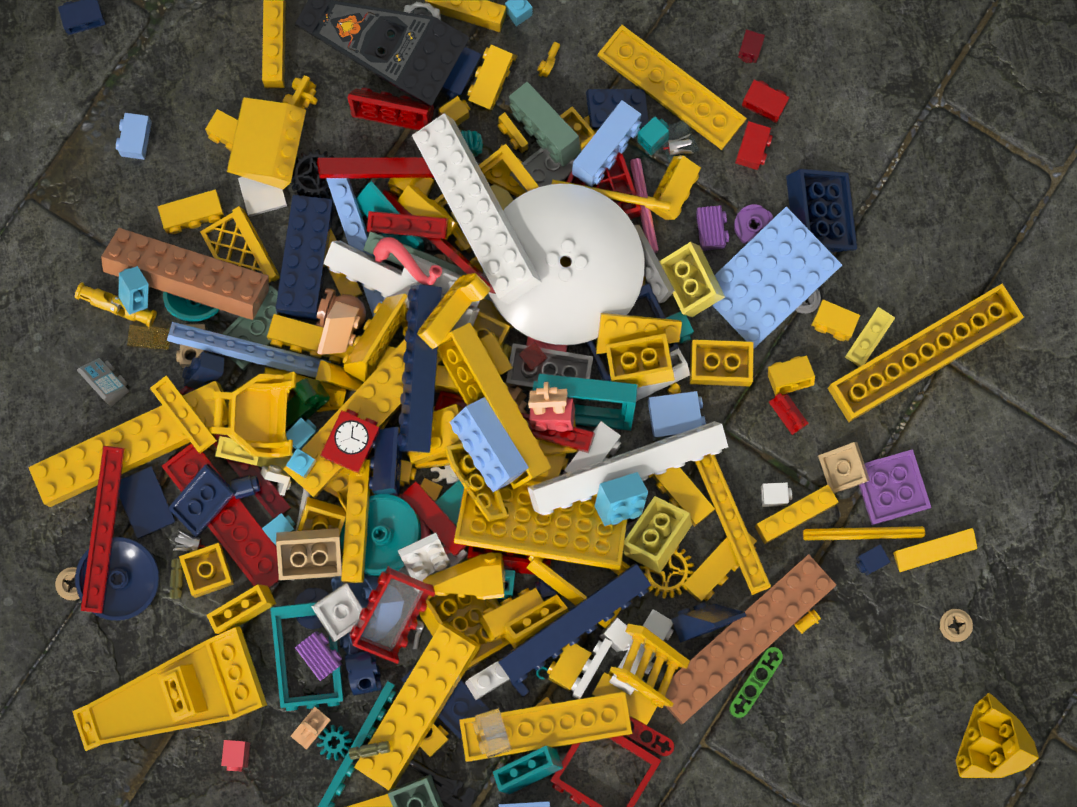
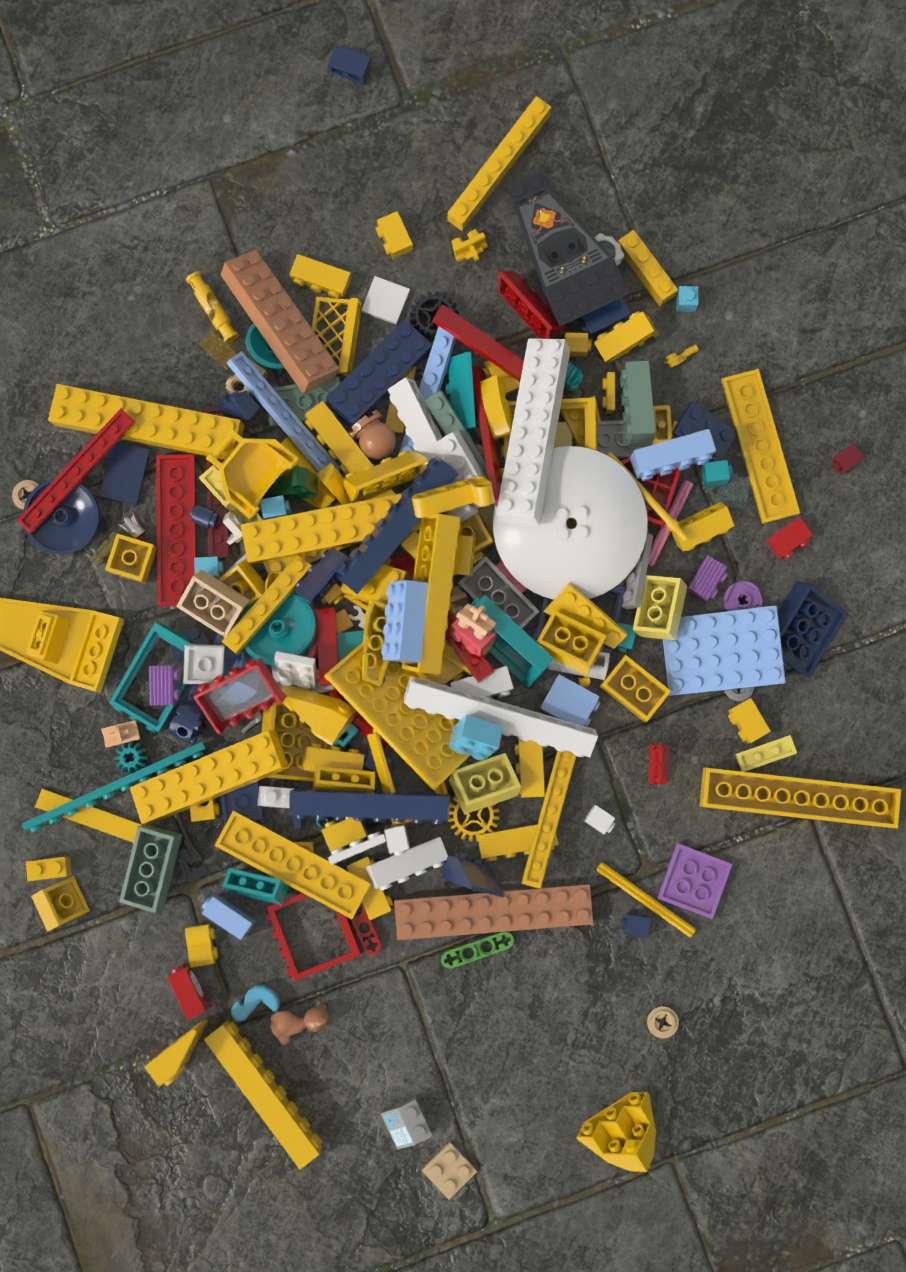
camera: 40 degrees right, 5 degrees up
(104, 381) = (160, 359): light grey slope -> none
(133, 290) = (230, 305): medium azure brick -> none
(134, 136) = (320, 186): light blue brick -> none
(183, 414) = (196, 428): yellow plate -> none
(202, 500) = (165, 503): dark blue tile -> none
(235, 755) = (50, 712): coral brick -> none
(241, 609) = (134, 607): yellow brick -> none
(266, 141) = (415, 263): yellow slope -> none
(301, 463) = (255, 530): medium azure brick -> none
(339, 329) = (360, 448): light nougat slope -> none
(350, 441) = (304, 541): brick -> none
(369, 750) = (148, 784): olive axle -> none
(390, 245) = (444, 413): coral animal -> none
(407, 225) = (472, 406): red tile -> none
(492, 733) = (248, 840): clear brick -> none
(533, 356) = (493, 577): clear red tile -> none
(663, 652) = (419, 877): yellow fence -> none
(674, 144) = (729, 493): flat silver piece -> none
(765, 100) = (825, 510): red brick -> none
(791, 375) = (681, 737): yellow brick -> none
(796, 514) = (604, 846): yellow brick -> none
(807, 621) = (551, 934): yellow pin -> none
(844, 467) = (668, 839): tan plate -> none
(935, 550) = (691, 953): yellow slope -> none

